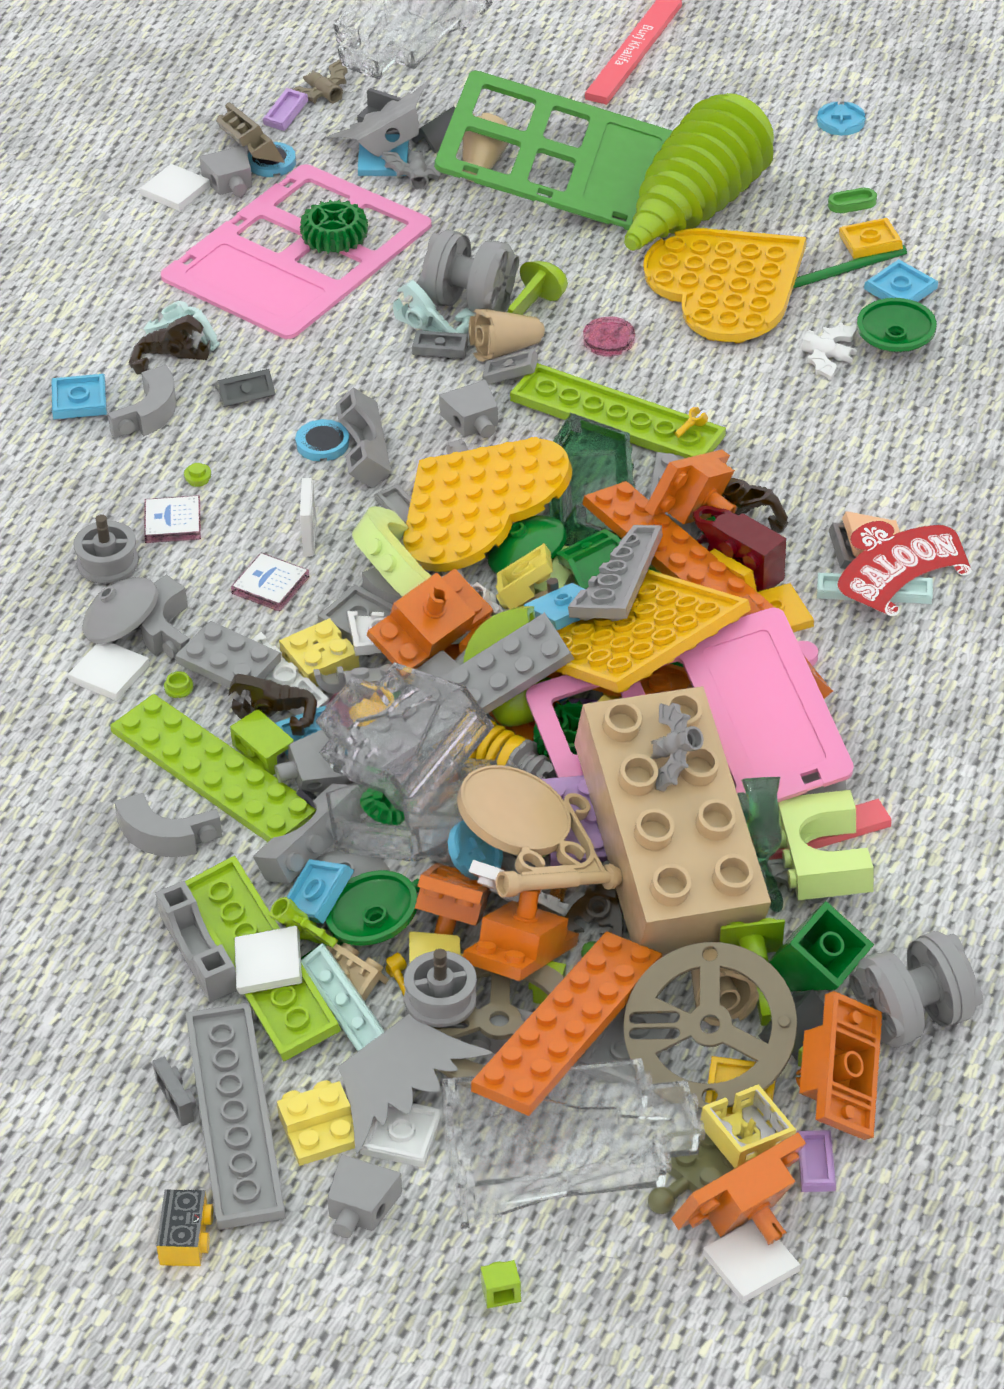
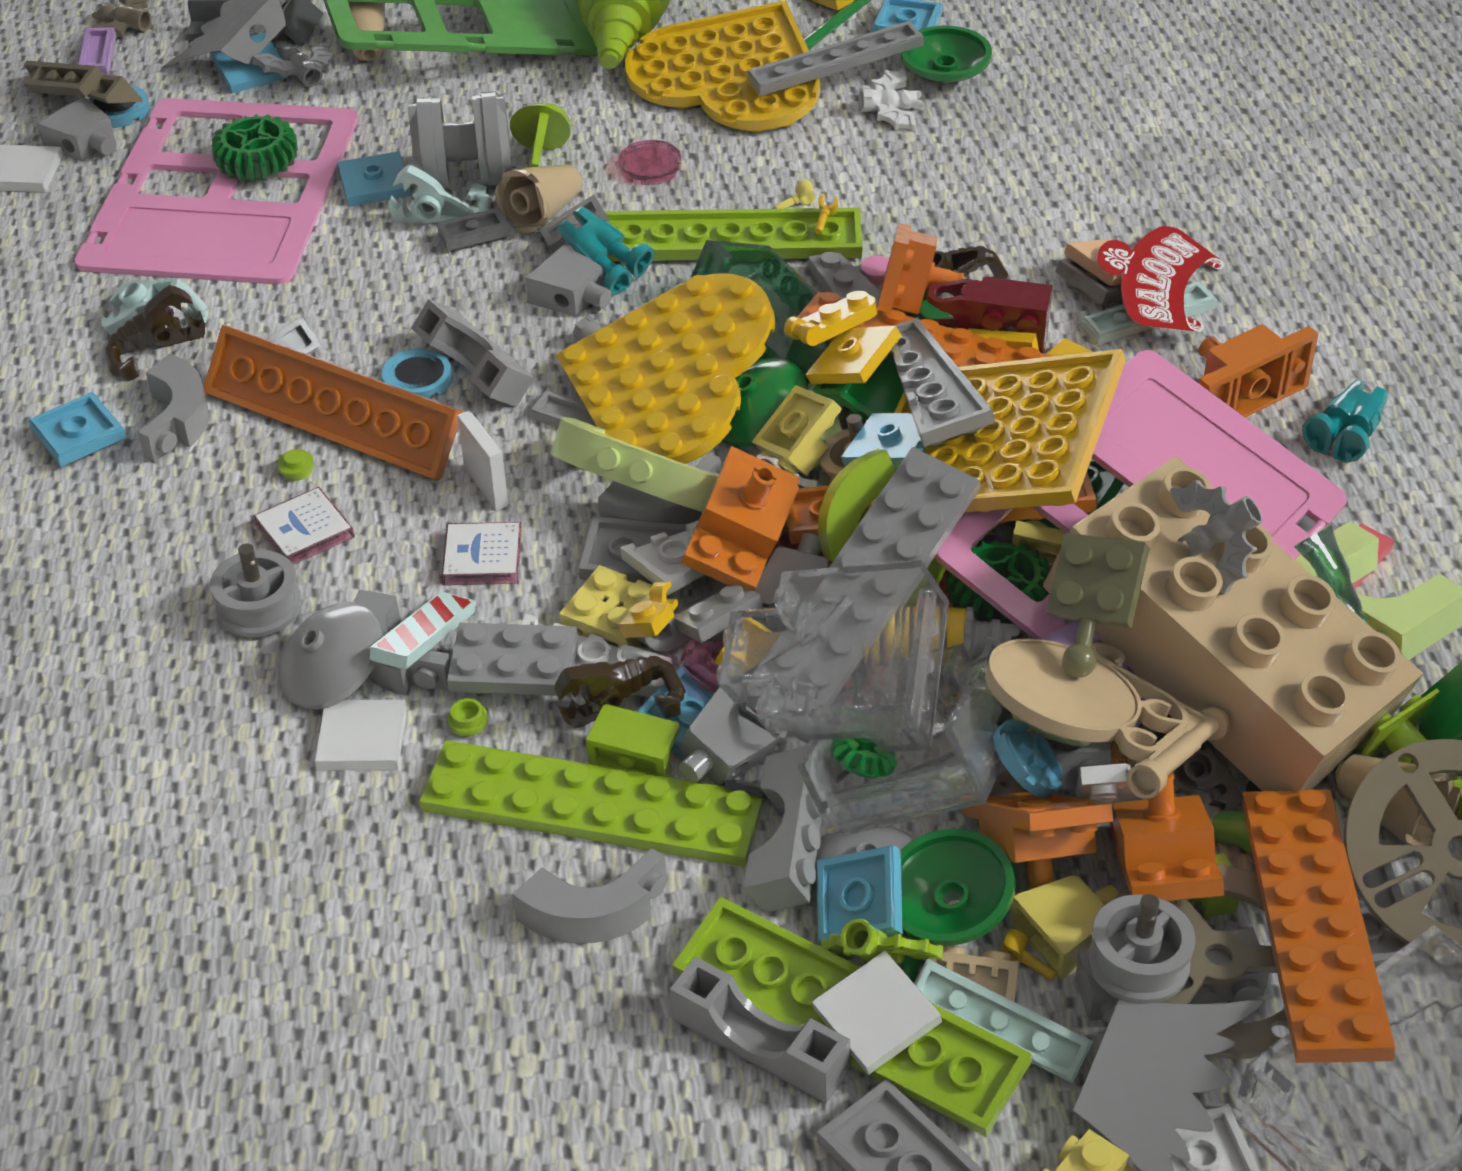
camera: 30 degrees left, 0 degrees up
(185, 616) = (422, 630): none -> light aqua tile
(244, 438) = (332, 402): none -> orange plate
(324, 663) = (649, 616): none -> yellow plate
(395, 274) = (372, 178): none -> medium azure plate
(510, 385) = (600, 239): none -> teal piece
(567, 752) = (1095, 585): none -> olive plate
(596, 536) = (853, 355): none -> yellow plate
(602, 504) = (832, 319): none -> yellow plate
(699, 401) = (803, 194): none -> light yellow hand
(802, 299) = (834, 58): none -> light grey tile
(886, 662) = (1258, 367): none -> orange brick
(947, 719) = (1353, 415): none -> teal piece

